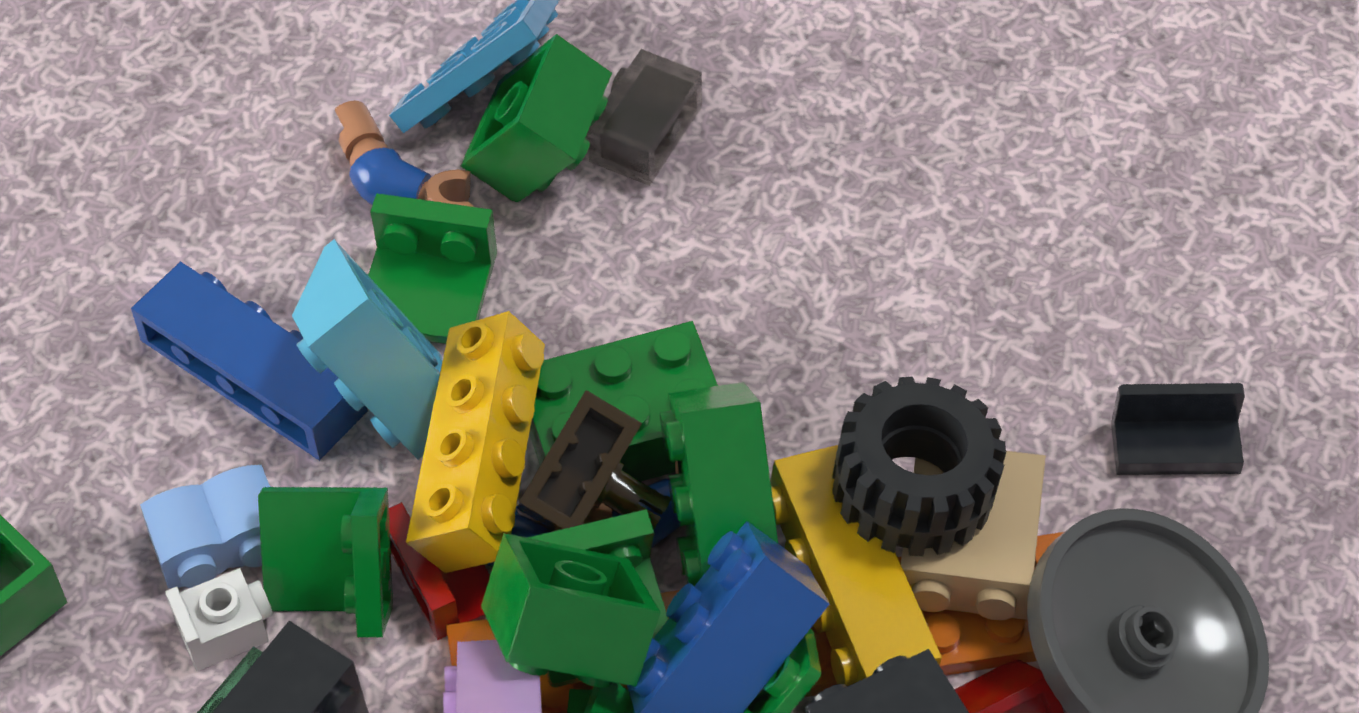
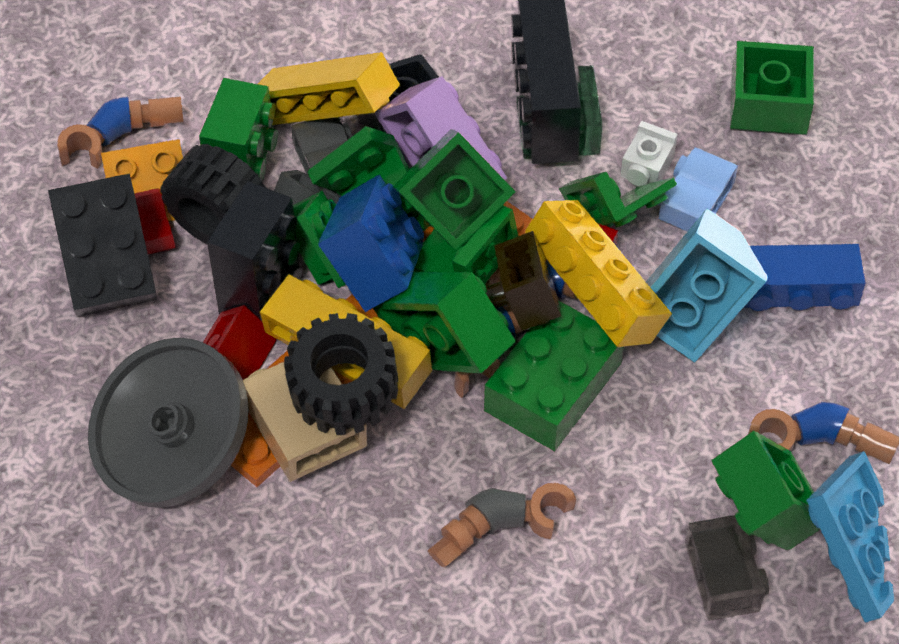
camera: 140 degrees right, 0 degrees up
(433, 260) = (740, 383): green bracket -> none
(823, 316) = (500, 510): none -> nougat piece
(1177, 429) = (237, 578): black panel -> none

